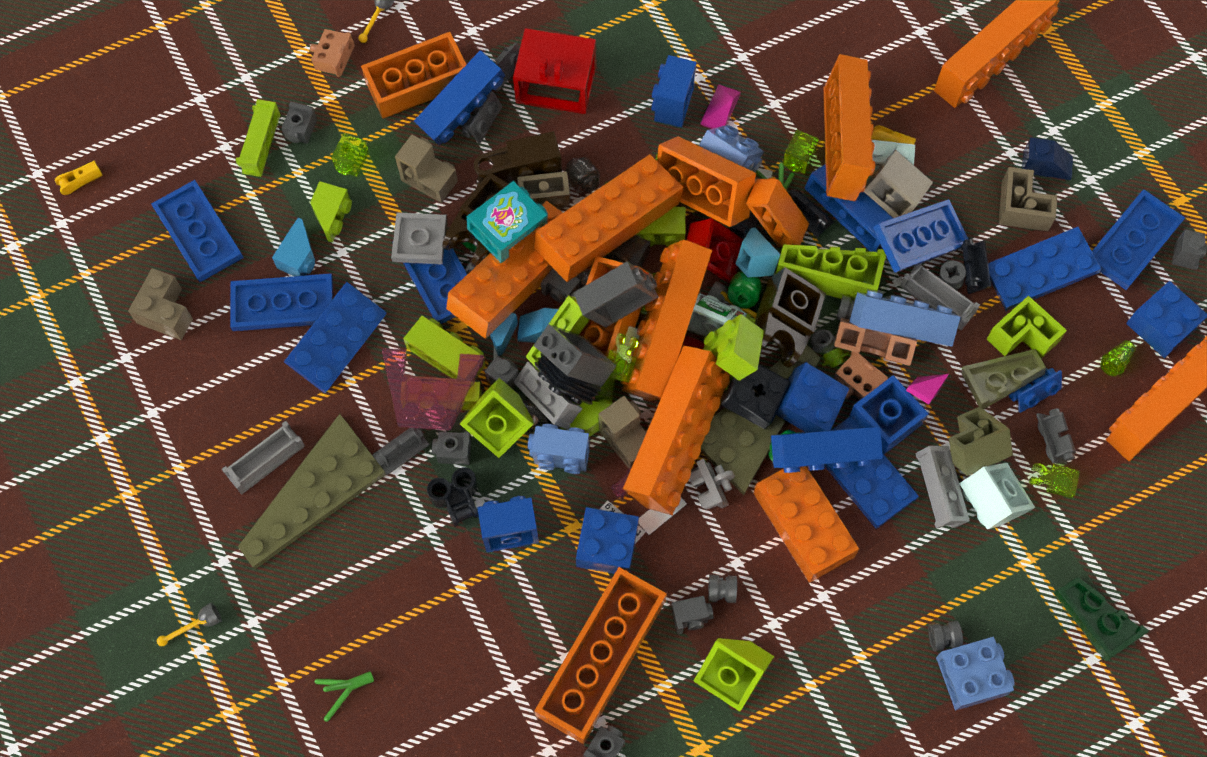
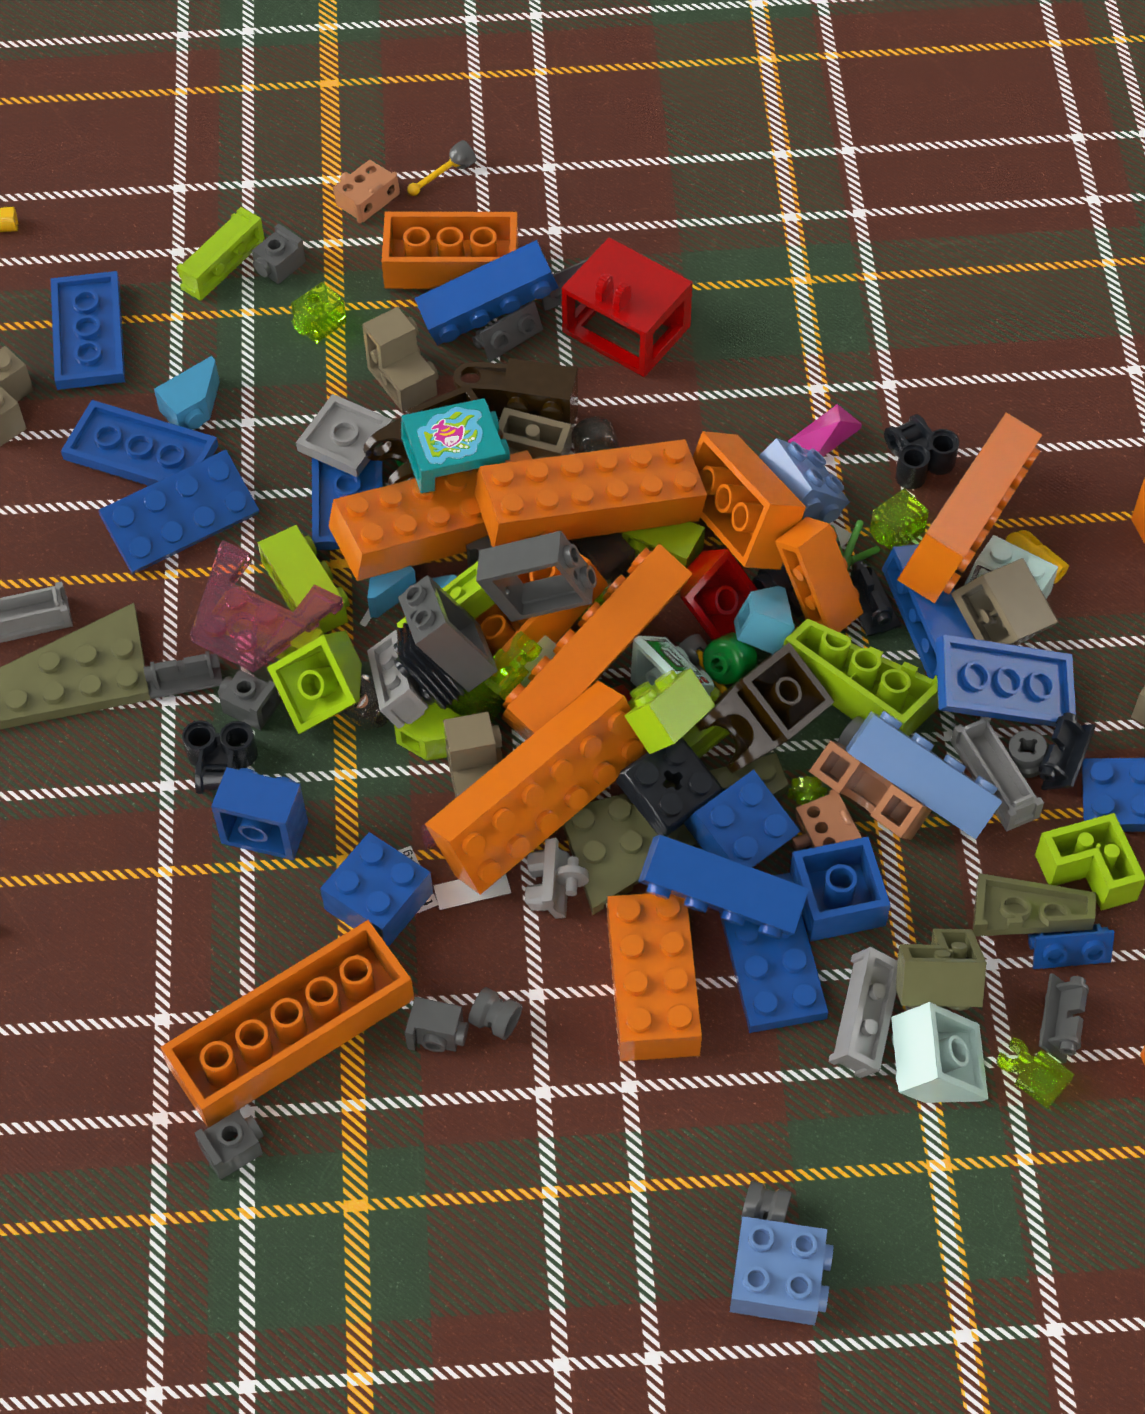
camera: 25 degrees right, 10 degrees down
(330, 206) = (259, 363): lime slope -> none
(502, 369) = (362, 631): dark grey brick -> none
(559, 448) = (378, 750): medium blue brick -> none
(673, 91) = (768, 385): blue brick -> none
(733, 670) = (453, 1121): lime slope -> none
(786, 96) = (921, 451): none -> black piece
(822, 336) = (800, 762): dark grey plate -> none
(927, 387) = (910, 876): dark pink slope -> none
(1102, 624) = (1000, 1288): dark green wing -> none

